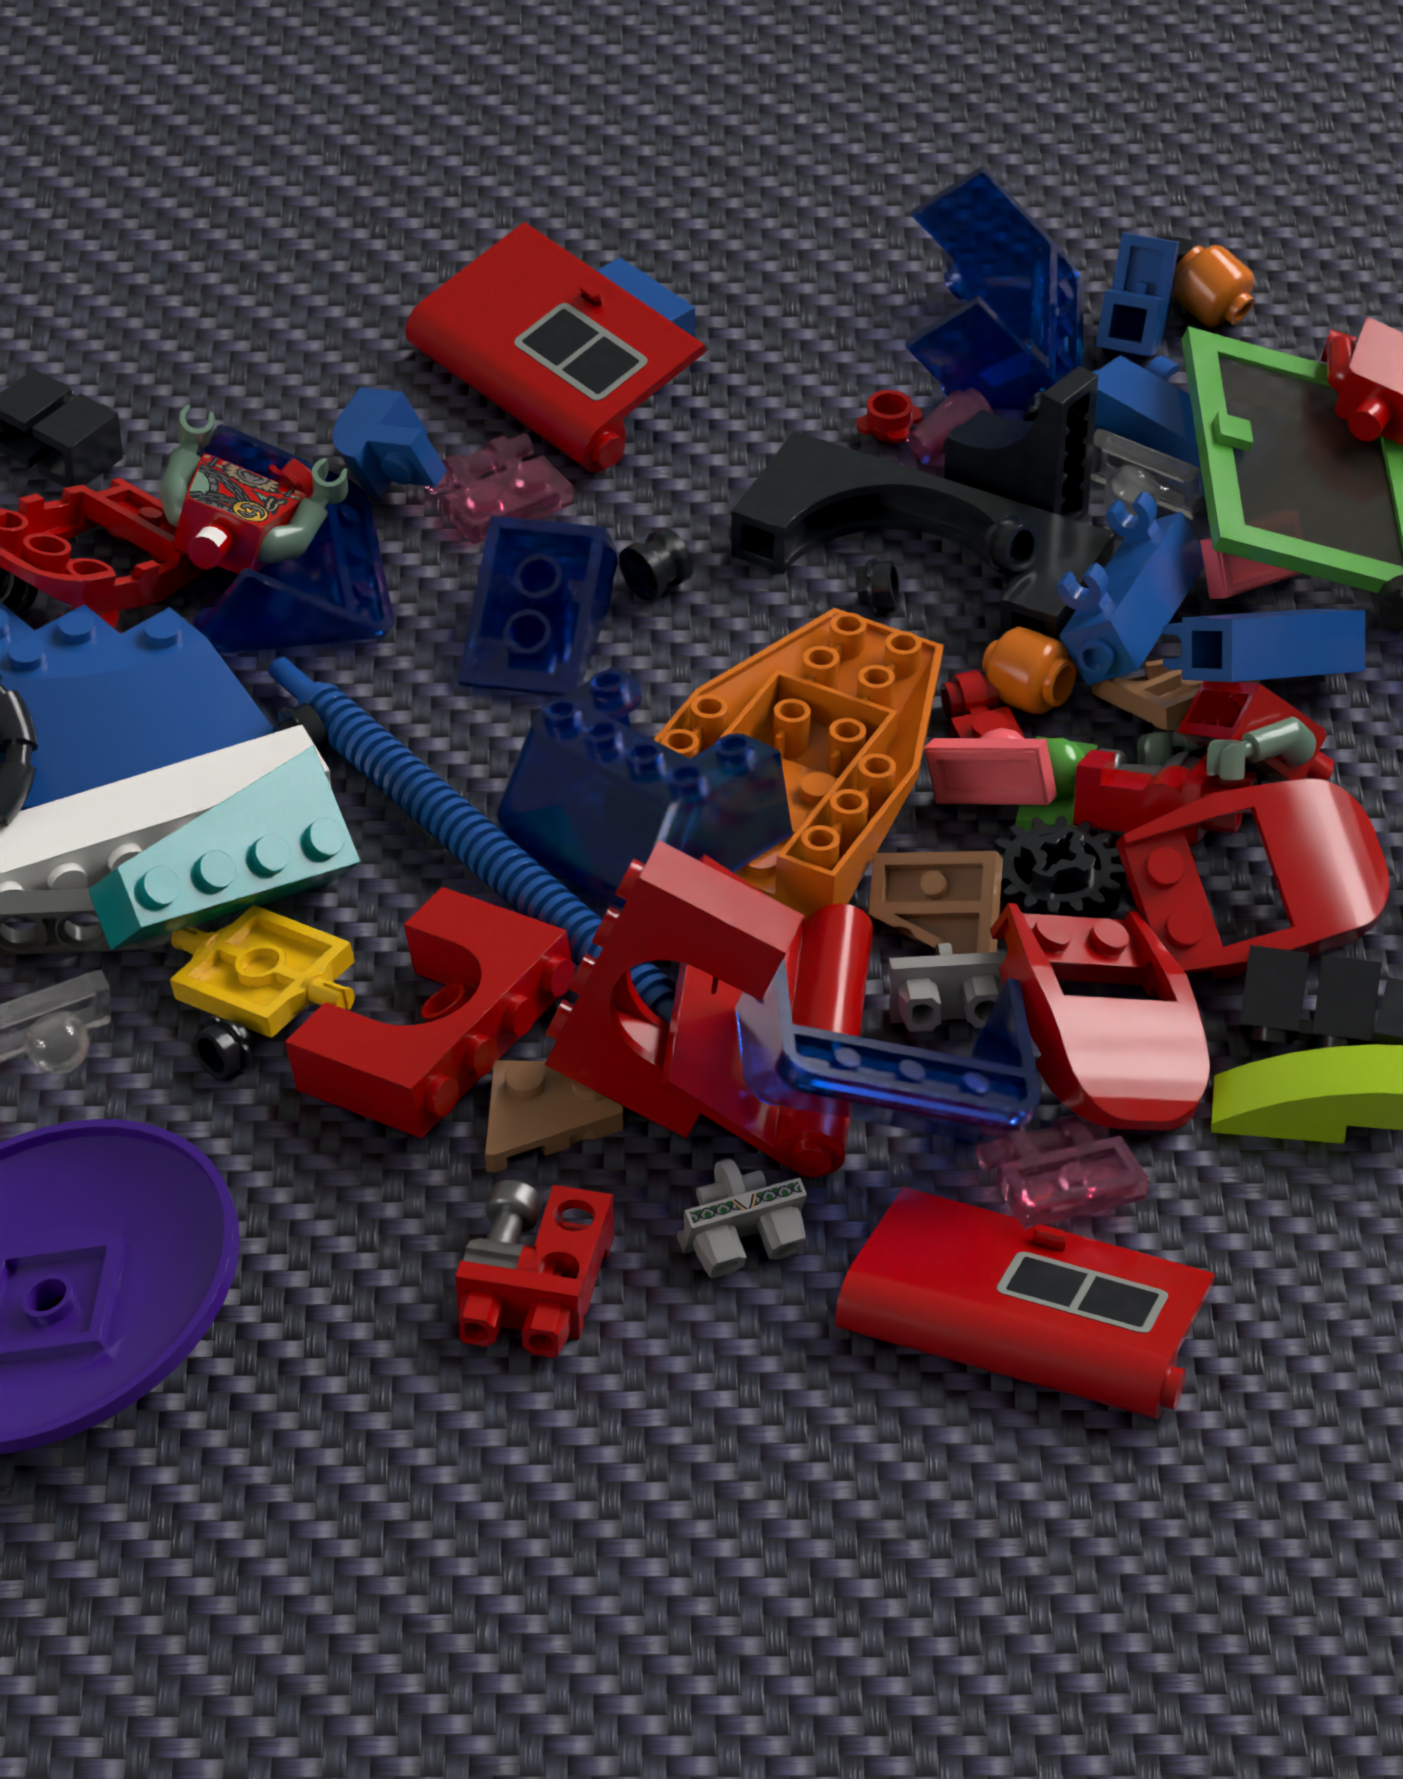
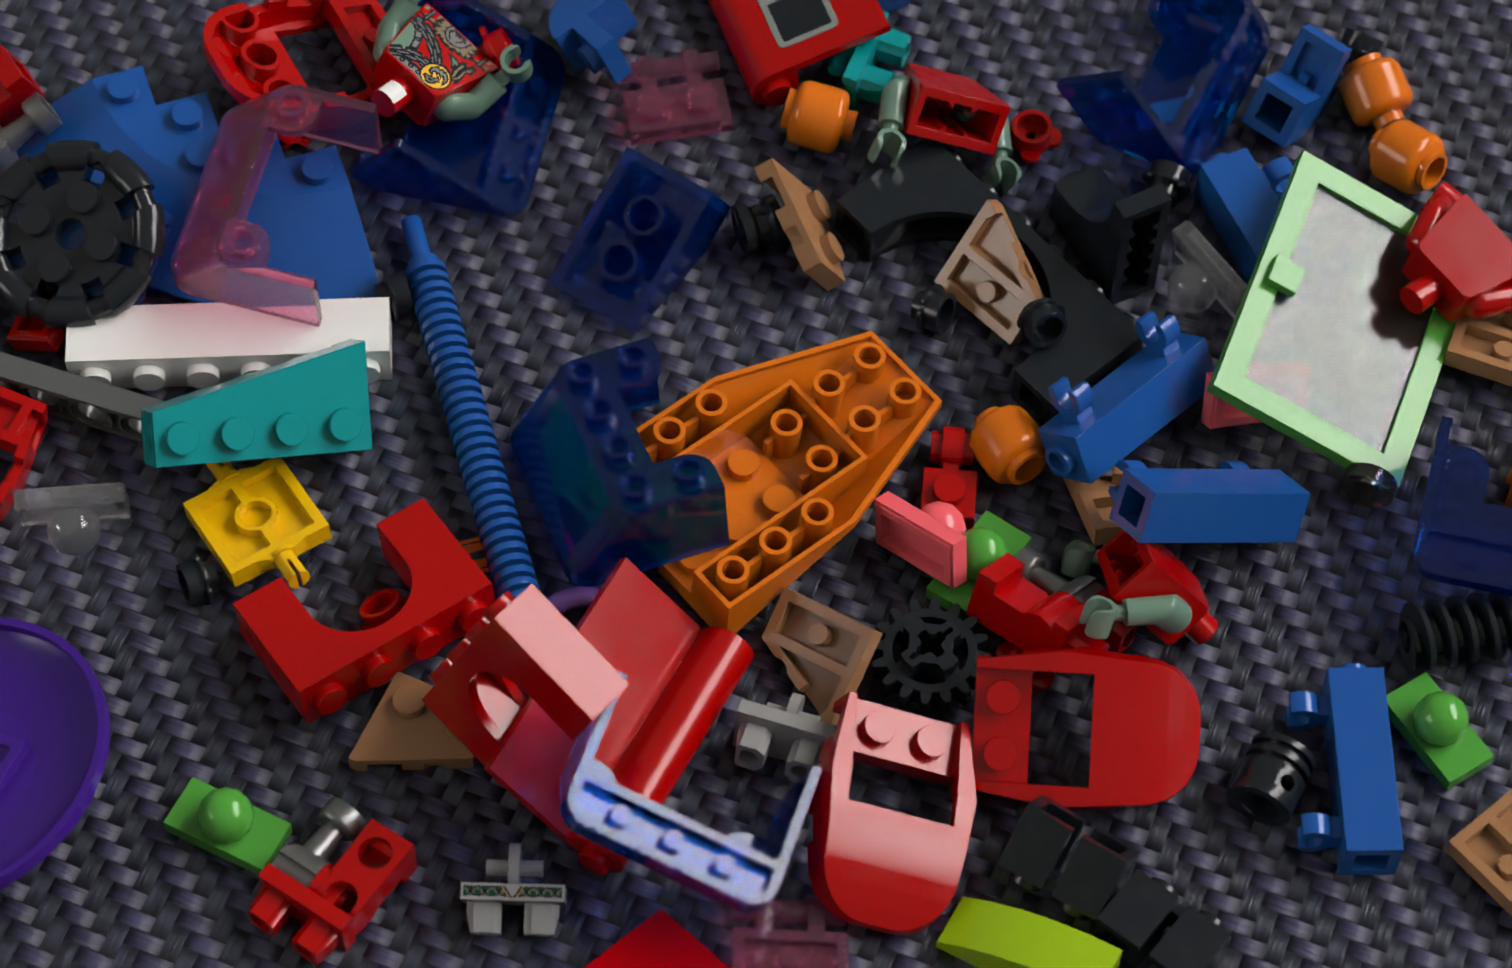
camera: 20 degrees right, 15 degrees up
(122, 718) = (220, 251): none -> clear pink windscreen
(384, 1258) = (227, 825): none -> bright green tile
(664, 456) = (818, 116): none -> orange head
(692, 400) = (859, 62): none -> teal hips
(705, 540) = (806, 225): none -> medium nougat wing
(808, 402) = (947, 111): none -> red torso
(927, 533) = (991, 272): none -> medium nougat wing
(957, 408) = (1076, 156): clear pink cone -> none
(1279, 323) = (1407, 157): none -> orange head

